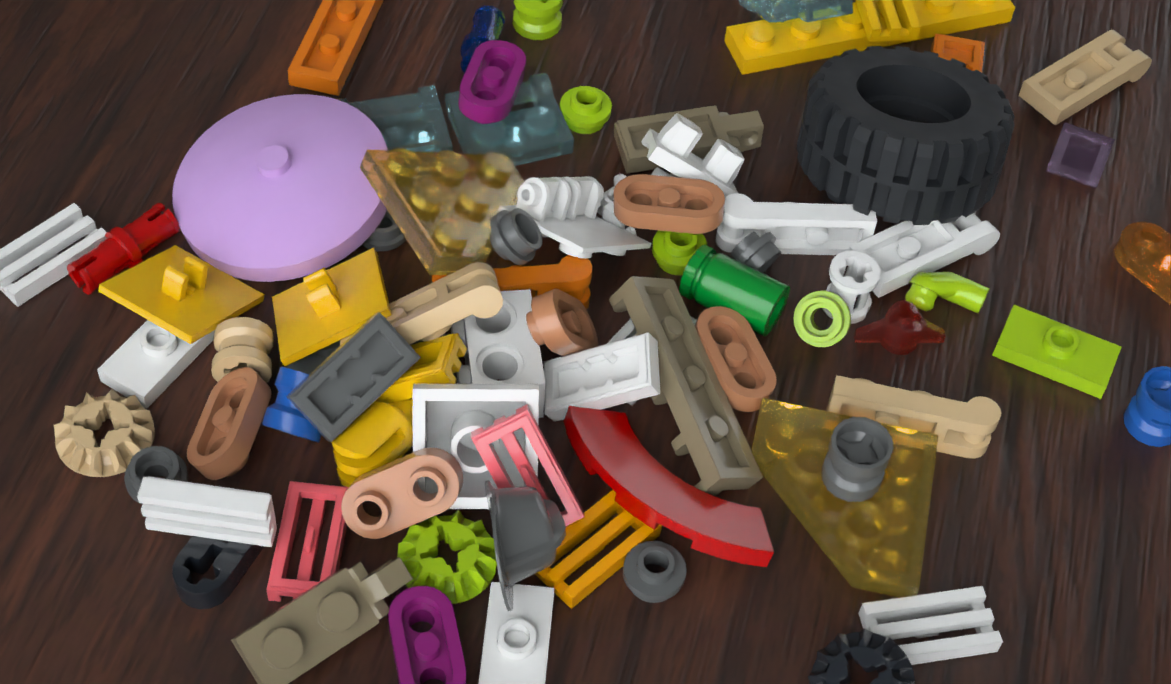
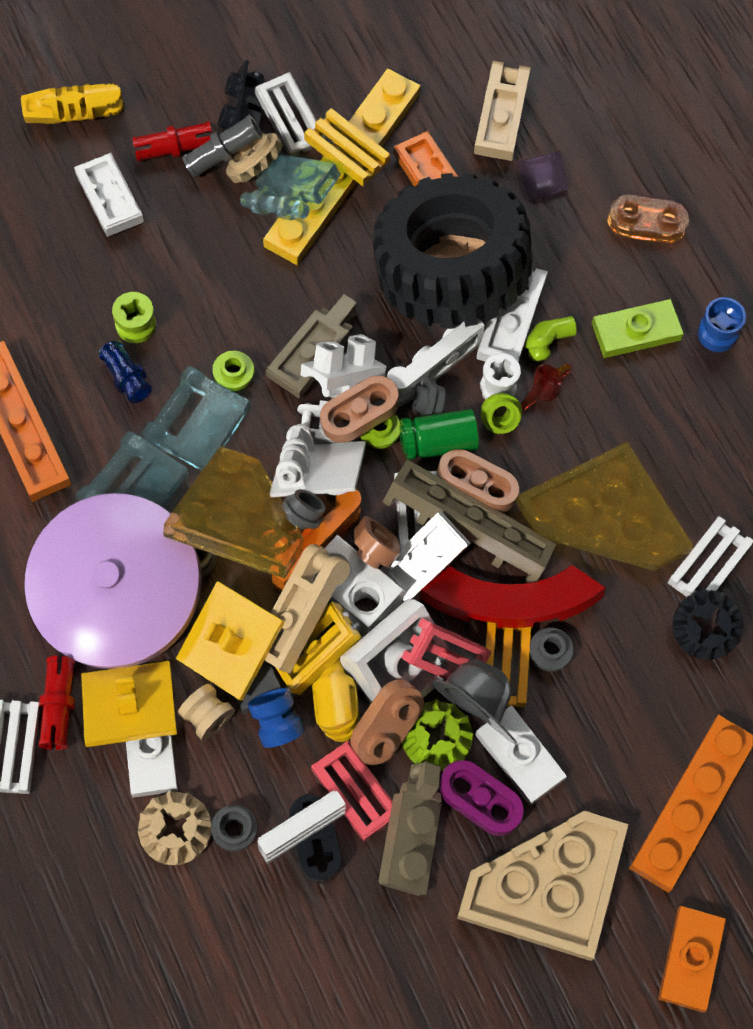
camera: 40 degrees left, 15 degrees up
(229, 424) = (244, 763): nougat plate -> none
(353, 377) = (304, 679): dark grey plate -> none
(492, 81) = (174, 406): magenta plate -> none
(856, 459) = (609, 488): dark grey wheel -> none
(961, 426) = (602, 438): tan plate -> none

